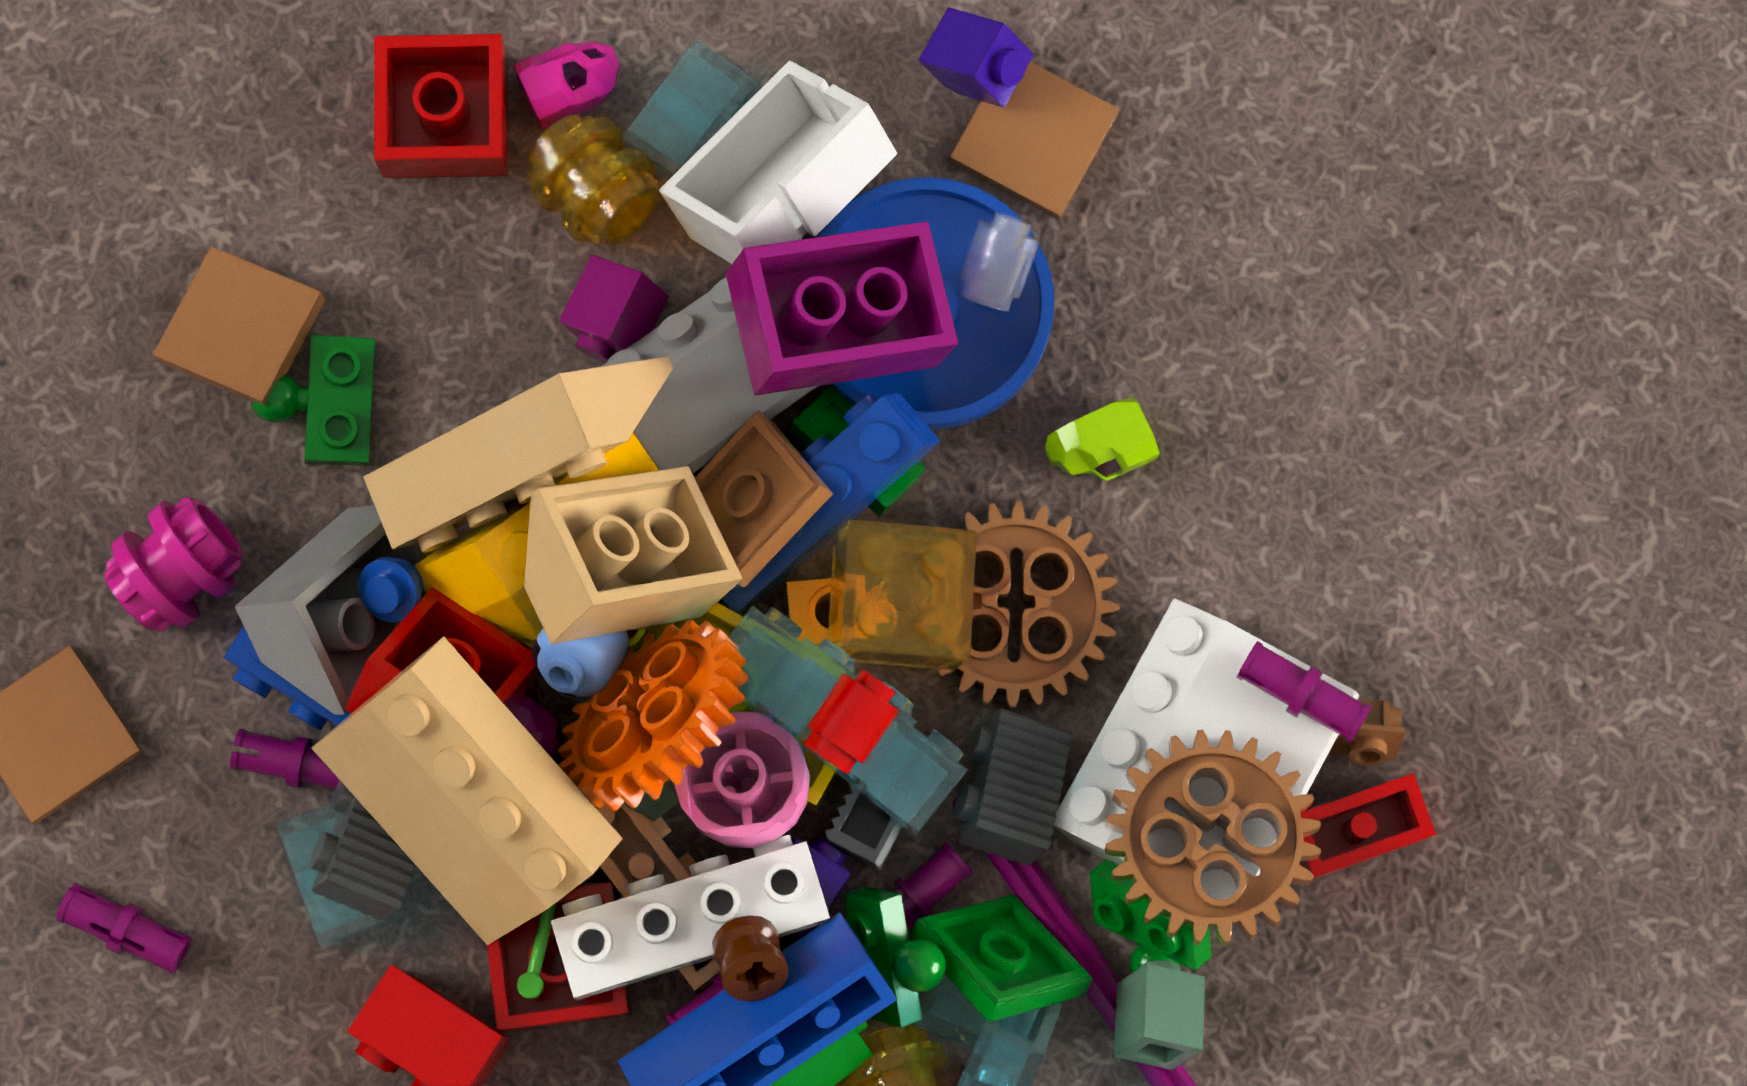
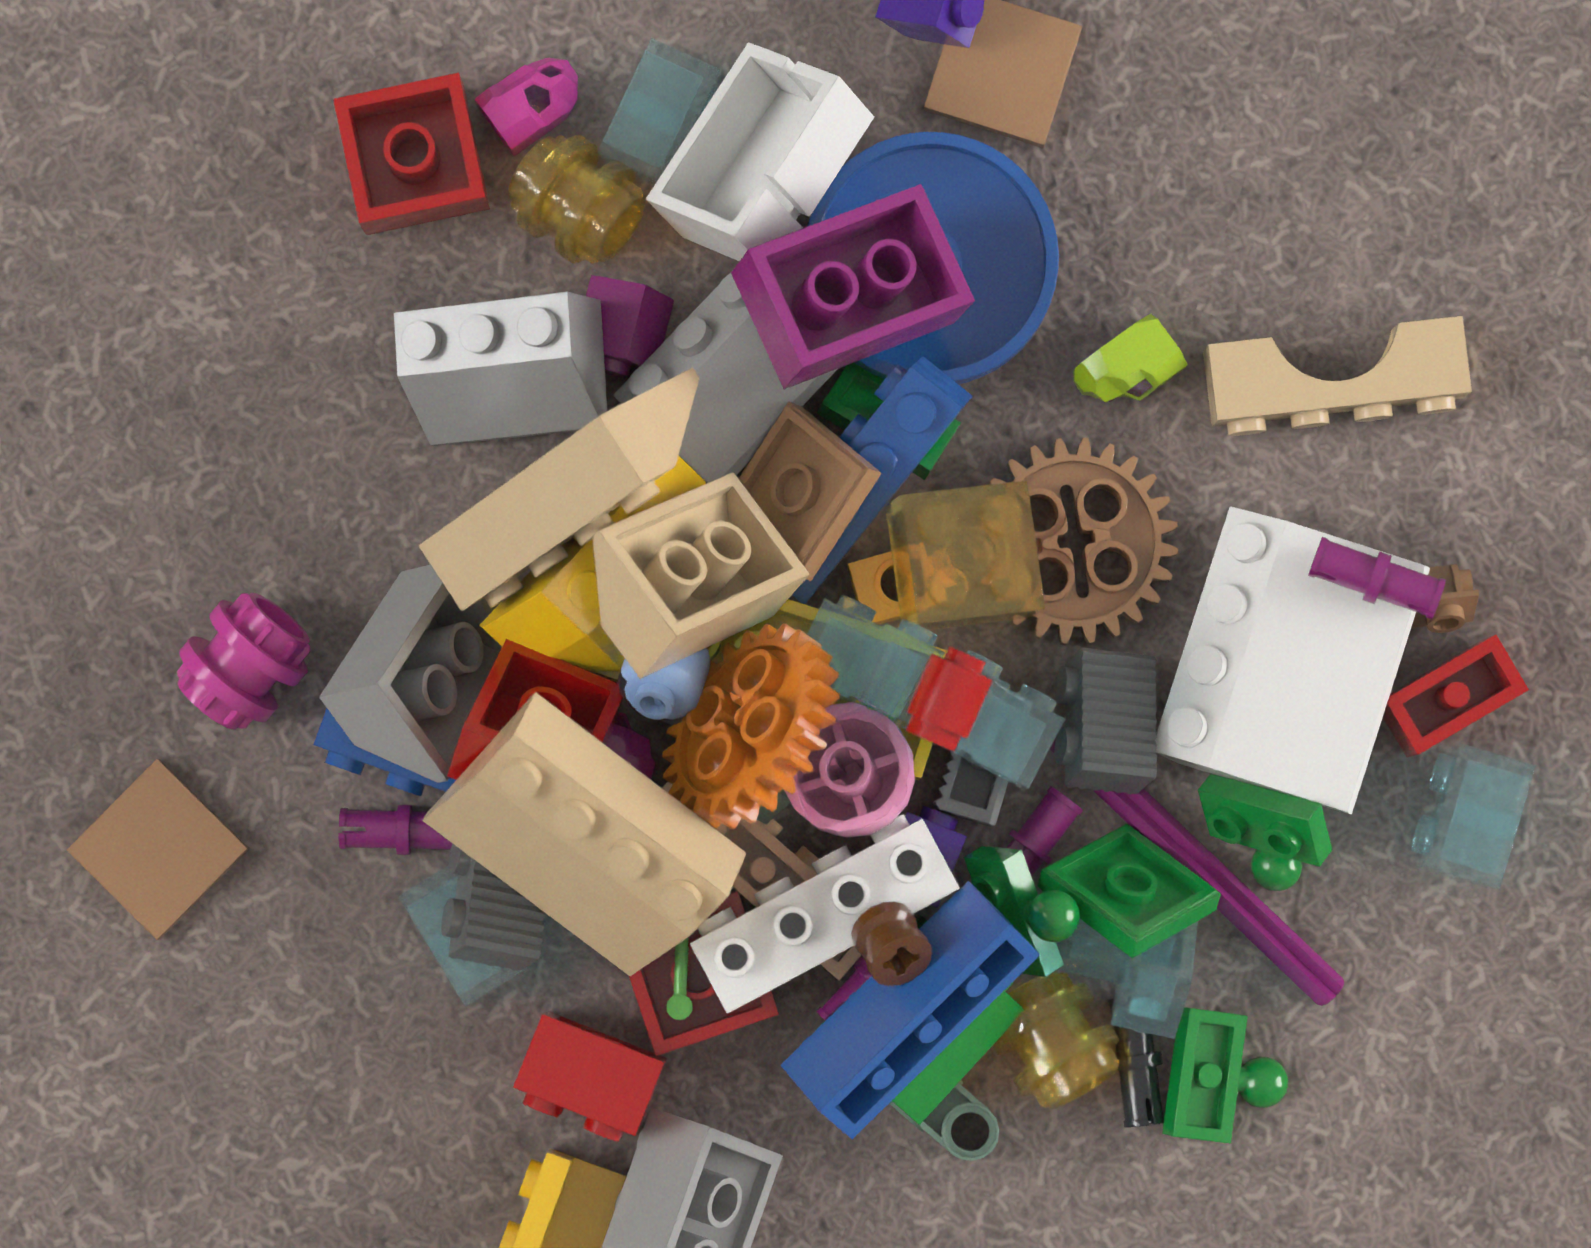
camera: 10 degrees left, 5 degrees up
(123, 928) = (268, 1024): magenta pin -> none
(239, 326) = (257, 412): medium nougat tile -> none
(335, 401) = (365, 466): green plate -> none
(390, 588) = (466, 648): blue plate -> none
(484, 323) = (503, 367): none -> light grey slope
(998, 261) = (995, 206): clear brick -> none
(1159, 1015) = (1292, 915): sand green brick -> none
(1224, 487) = (1256, 383): none -> tan arch
(1250, 792) = (1341, 685): medium nougat gear -> none
(1360, 951) = (1473, 815): none -> clear light blue brick

